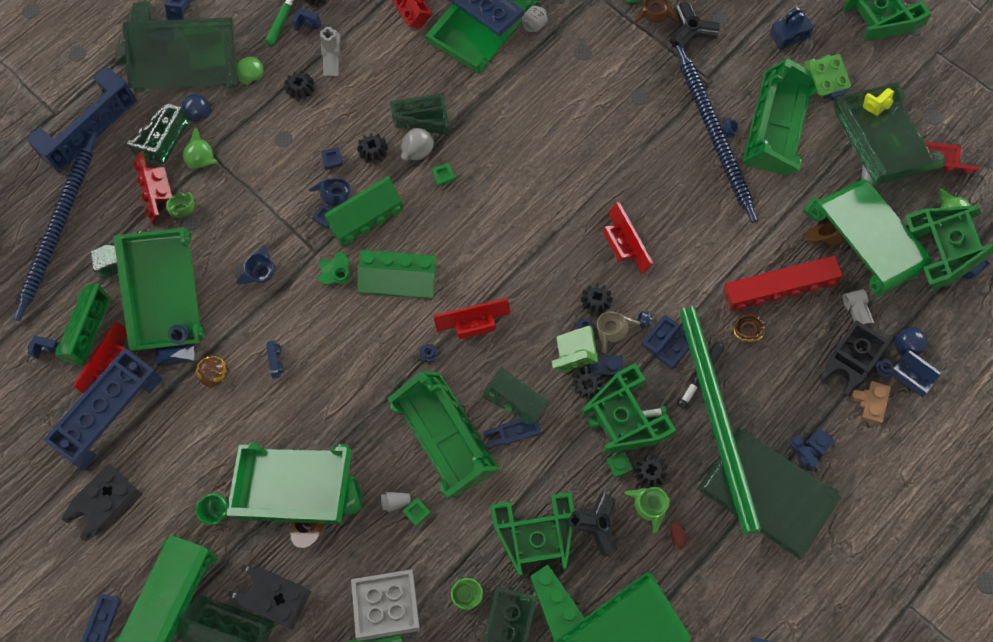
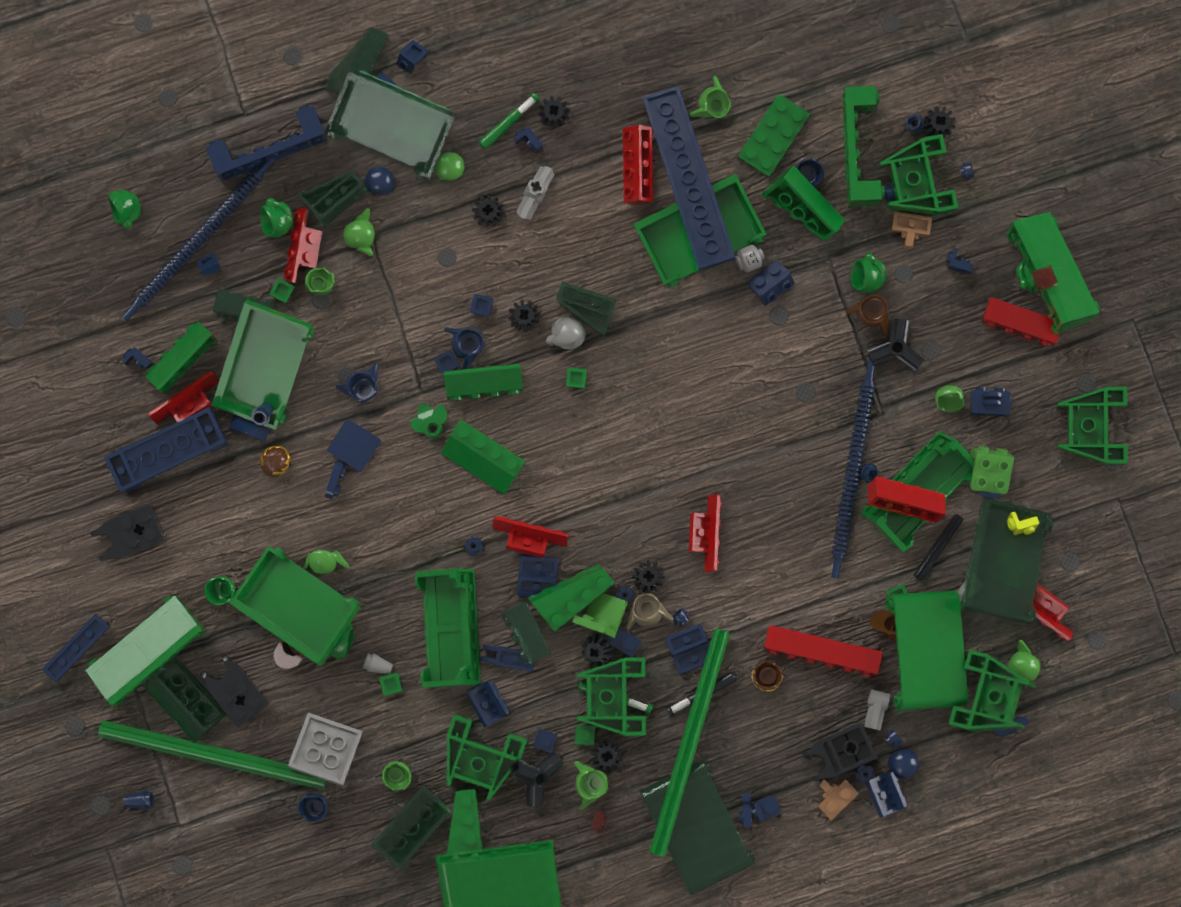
camera: 25 degrees right, 15 degrees up
(76, 239) = (208, 264): none -> dark blue plate
(117, 174) = (275, 218): none -> green piece
(151, 225) = (282, 291): none -> green plate
(277, 322) = (353, 445): none -> dark blue slope
(297, 432) = (324, 562): none -> bright green piece
(499, 349) = (536, 574): none -> dark blue slope
(515, 481) = (487, 703): none -> dark blue bracket
(538, 349) = (571, 595): none -> green wedge
(563, 29) = (771, 282): none -> dark blue bracket
(586, 489) = (545, 740): none -> dark blue plate
(758, 41) = (949, 398): none -> bright green hair
(776, 124) = (906, 499): none -> red brick
(823, 154) = (938, 547): none -> black axle
(888, 325) = (893, 738): none -> dark blue plate

